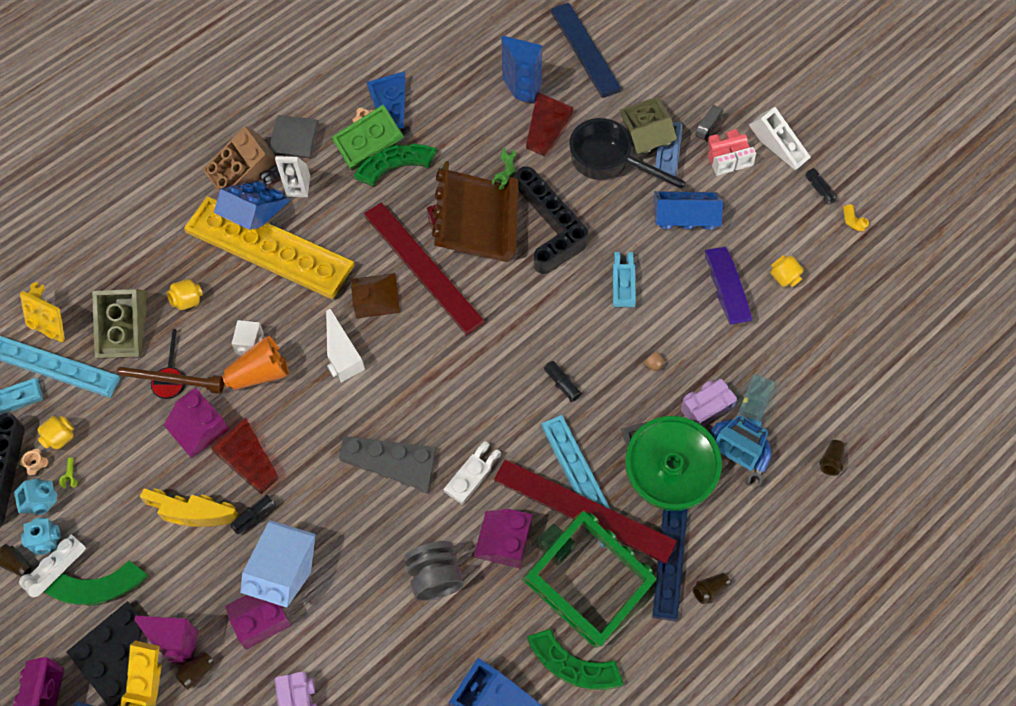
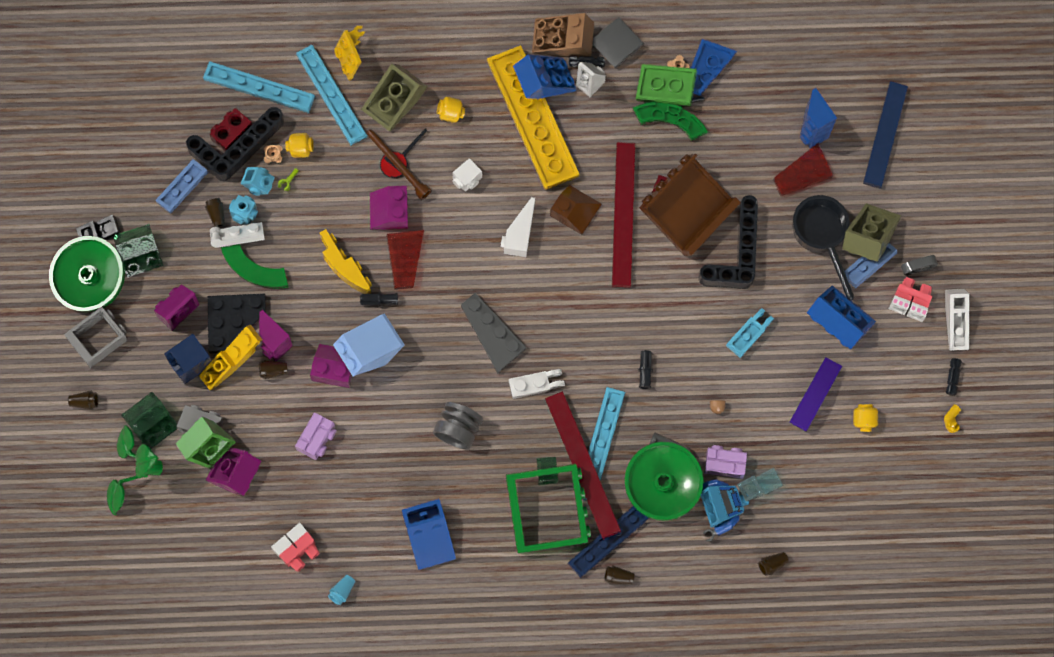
camera: 35 degrees right, 10 degrees up
(257, 366) = (458, 200): orange cone -> none
(504, 537) = (519, 440): magenta slope -> none
(509, 168) = (732, 192): bright green piece -> none
(570, 669) = (491, 551): green tile -> none

